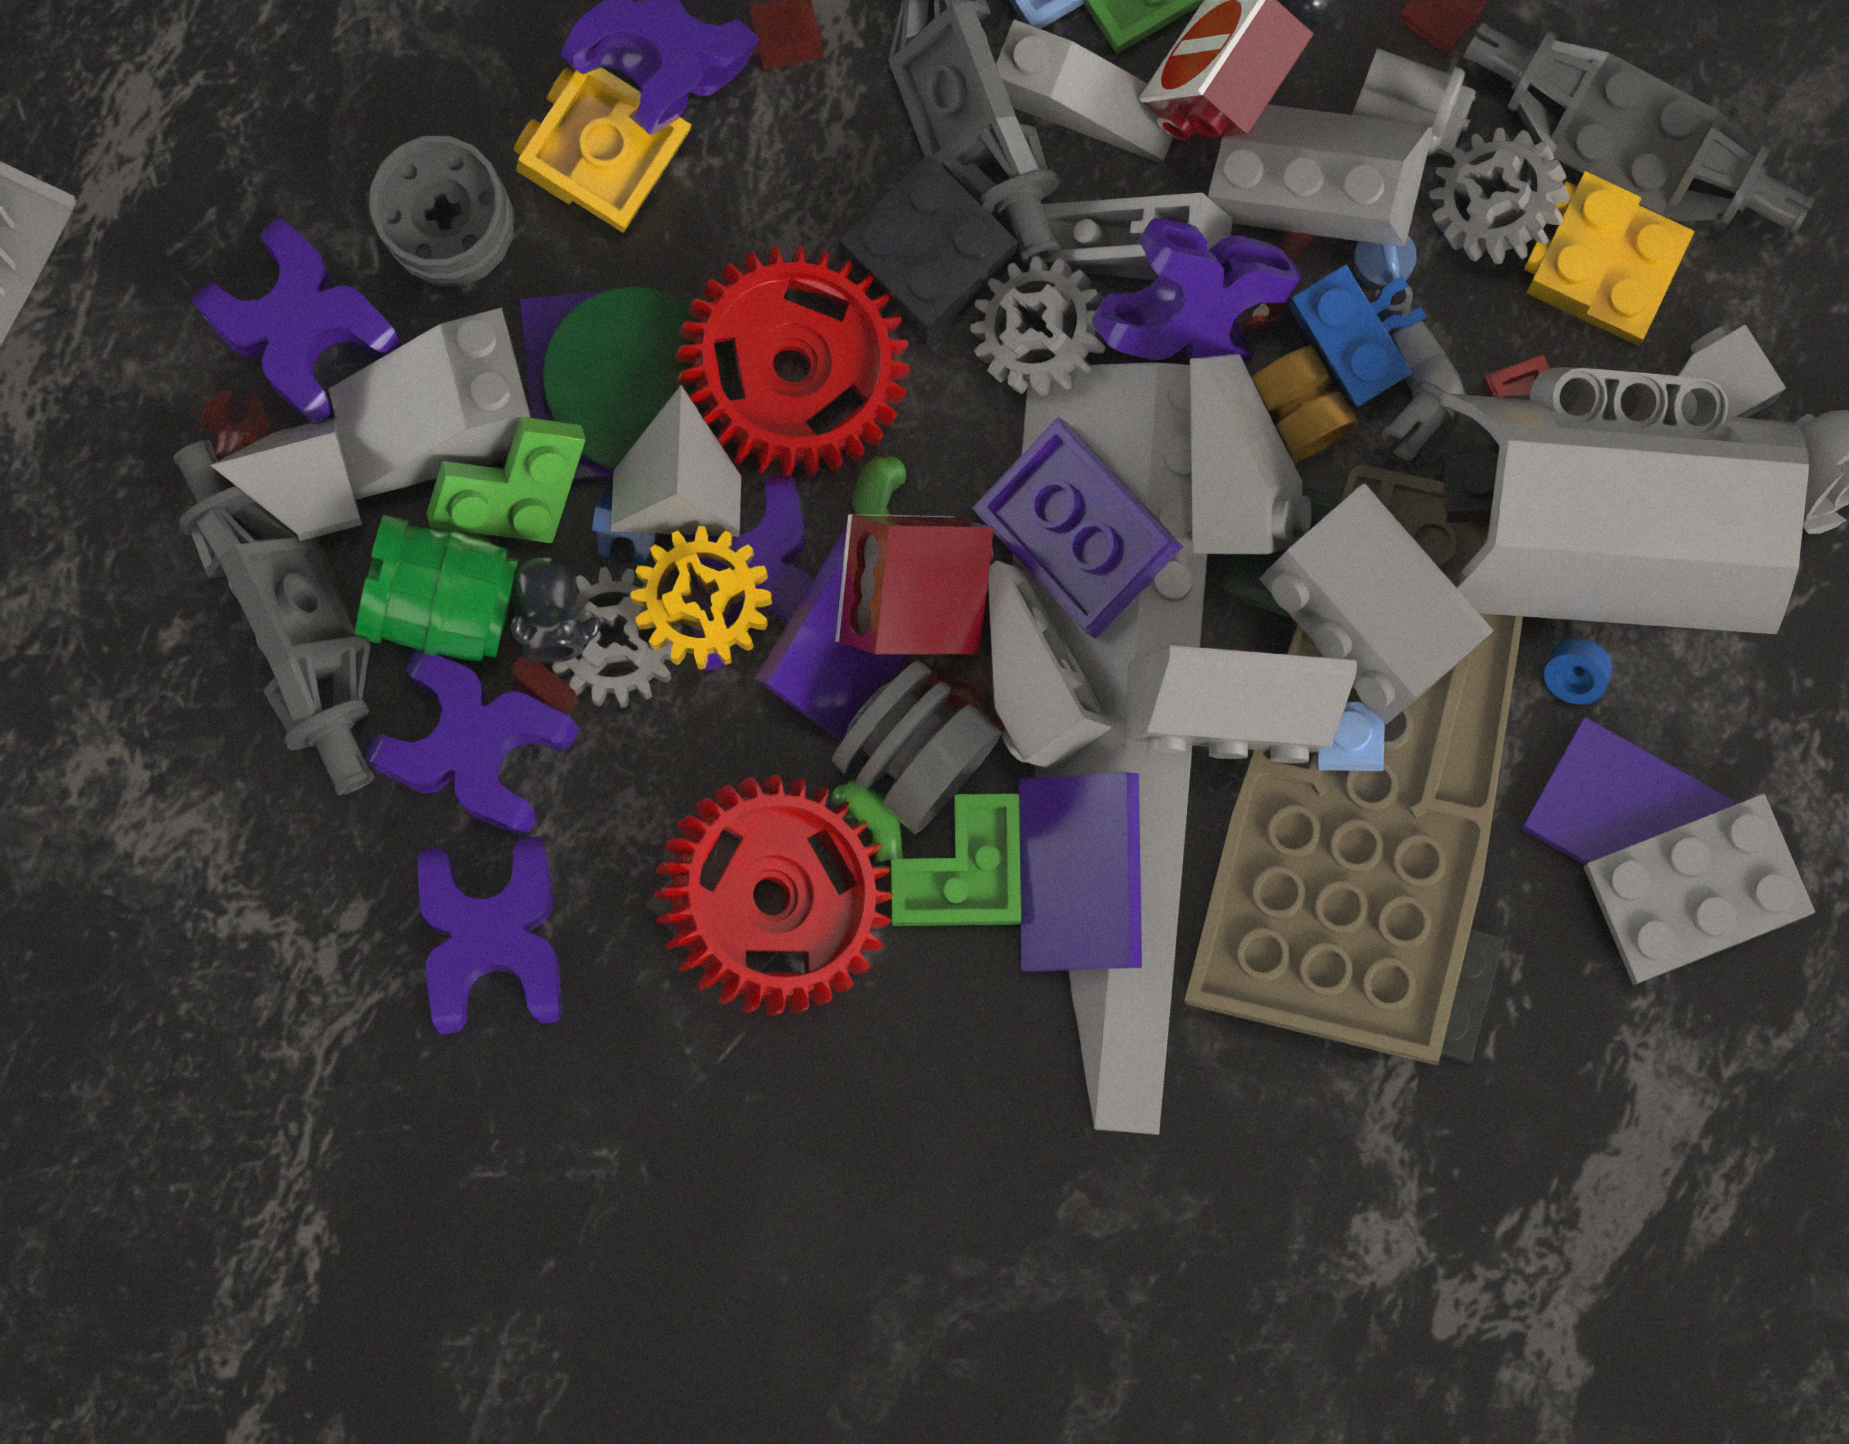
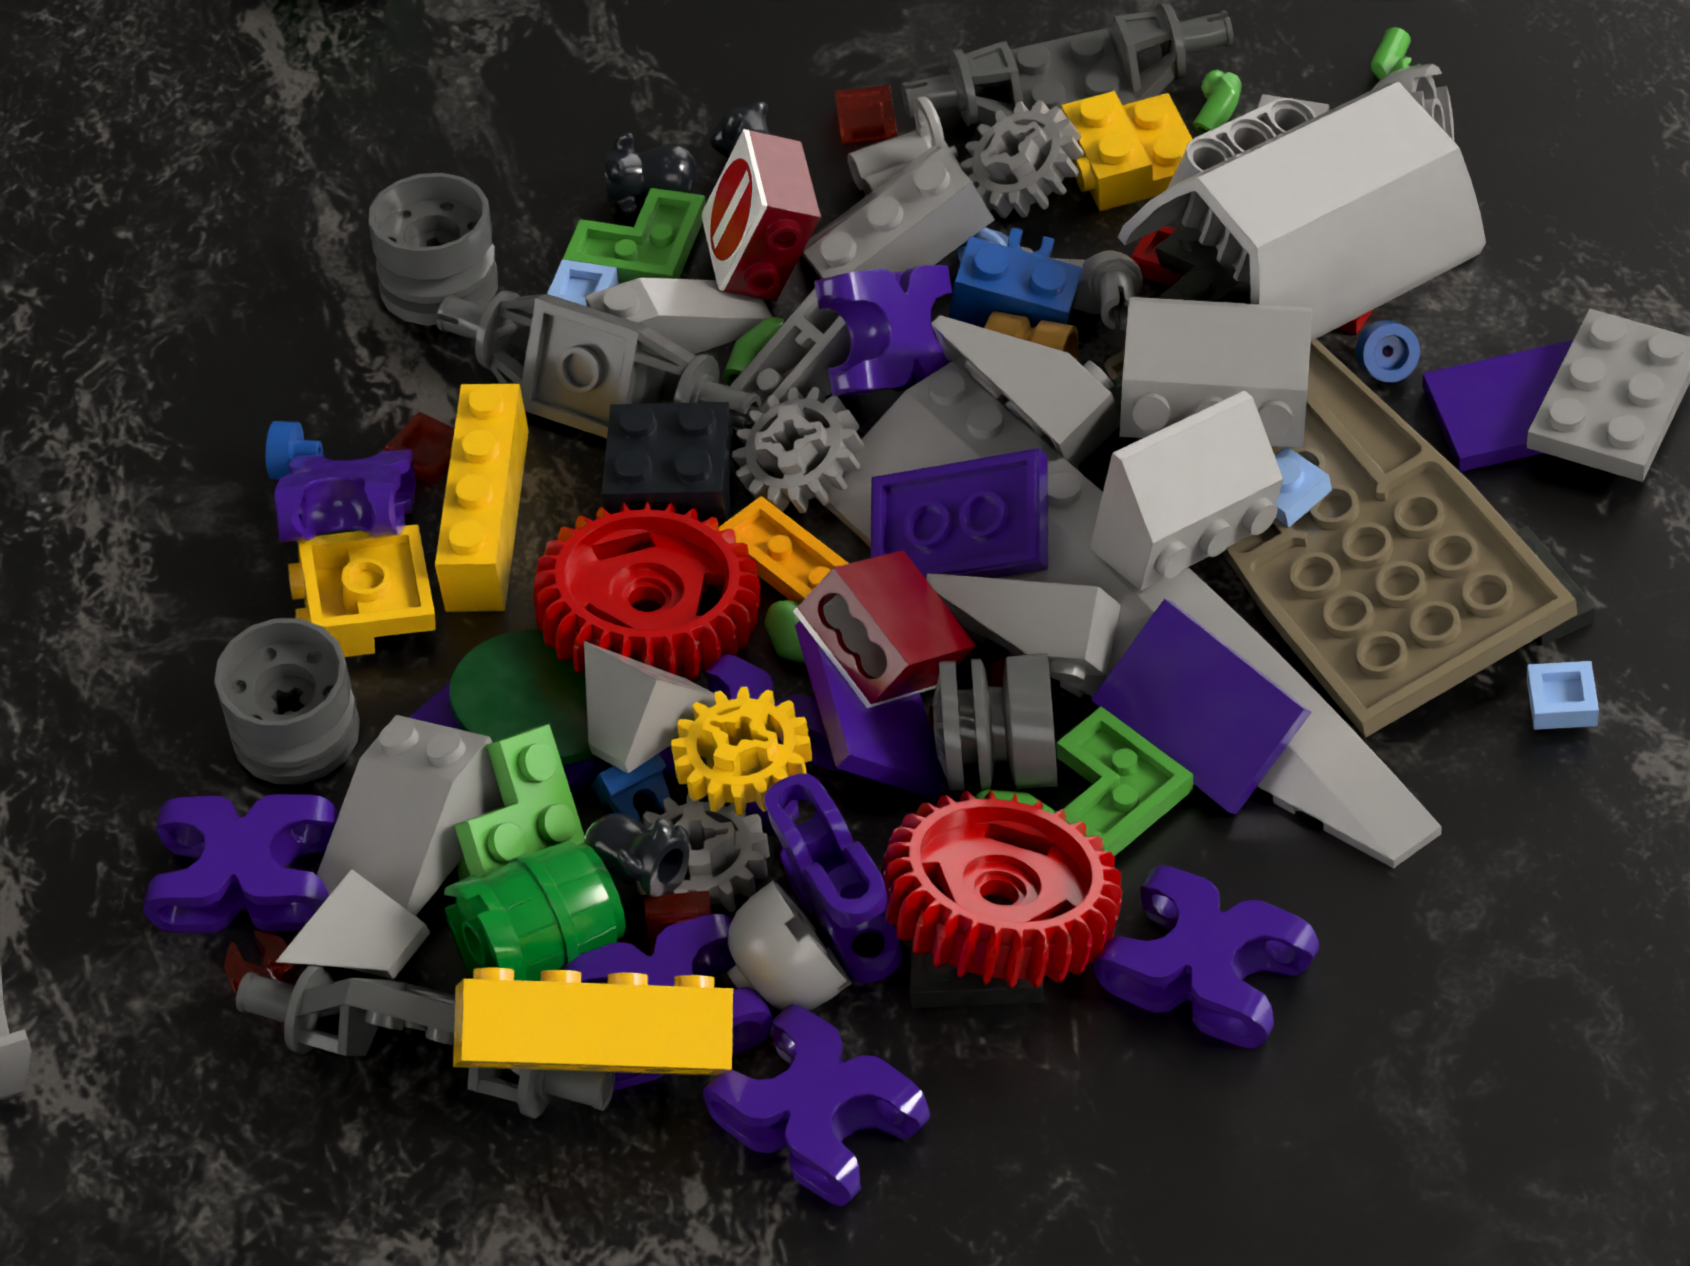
camera: 35 degrees left, 30 degrees down
(361, 751) = (593, 1025): none -> yellow brick
(582, 791) = (781, 953): none -> light grey cylinder
(668, 763) = (834, 878): none -> dark purple piece
(770, 136) = (482, 498): none -> yellow brick
(873, 1082) = (1206, 956): none -> dark purple piece
(940, 430) = (782, 549): none -> light orange plate
(1117, 174) = (749, 346): none -> bright green arm
(1361, 1115) = (1562, 695): none -> light blue plate
(1725, 285) = (1222, 98): none -> bright green arm

